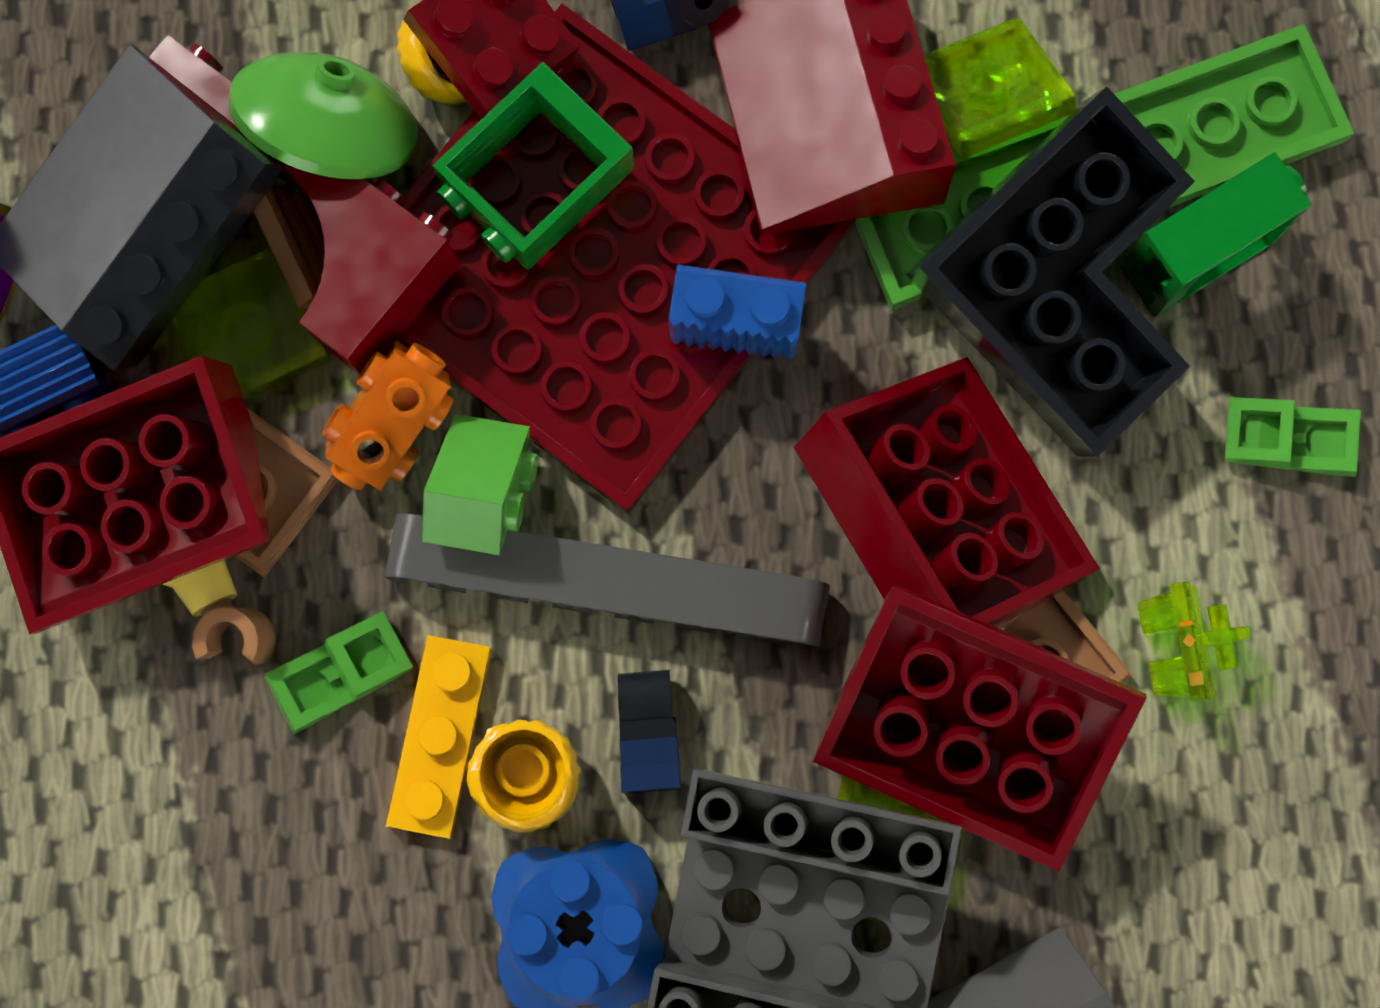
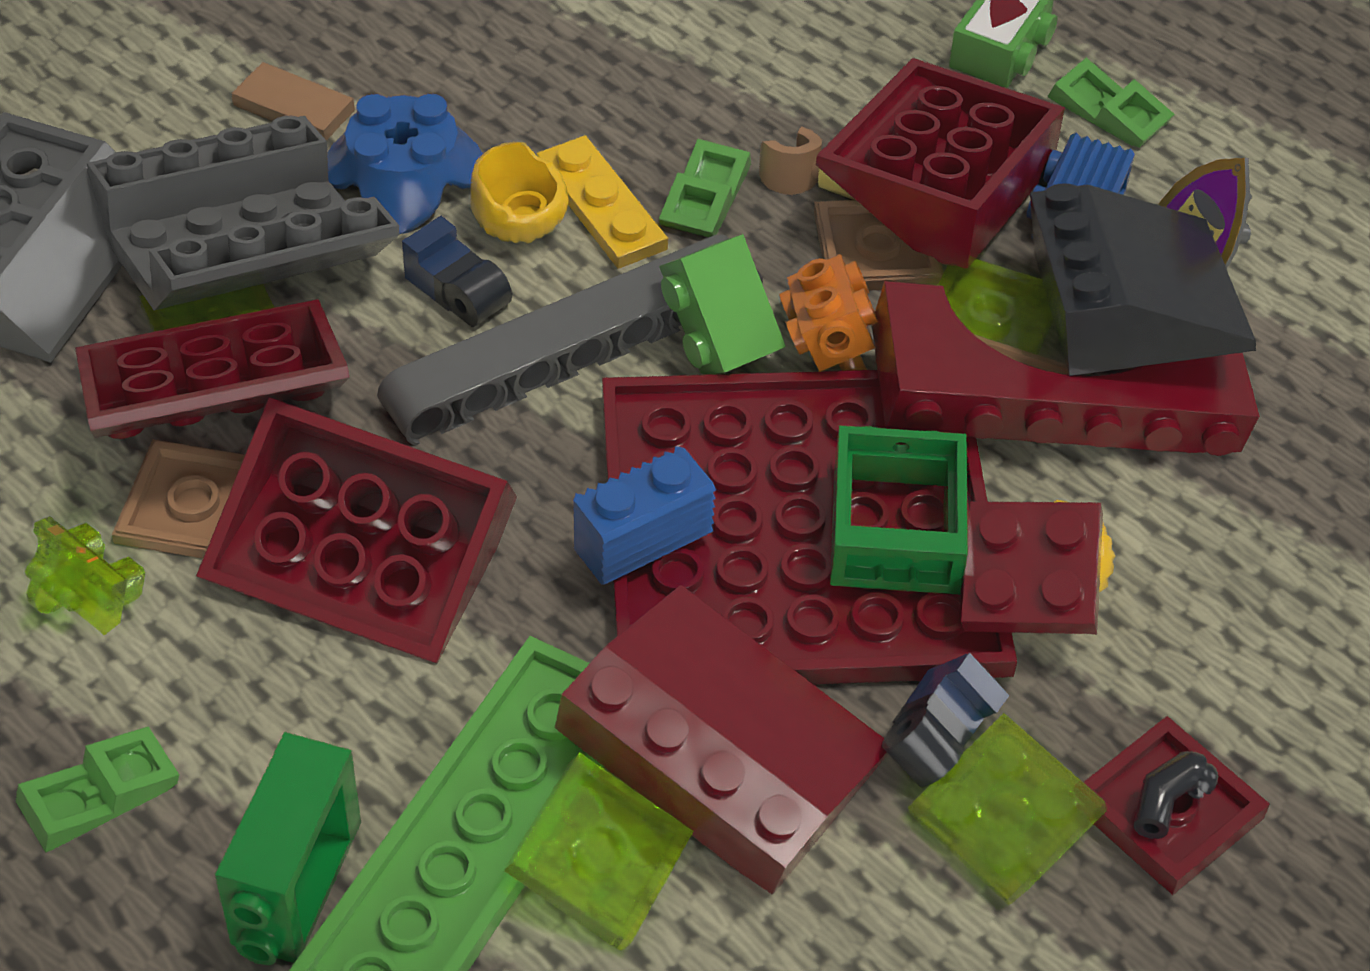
camera: 135 degrees right, 30 degrees down
(323, 115) = (1051, 427): bright green dish -> none
(1031, 282) = (424, 701): black brick -> none

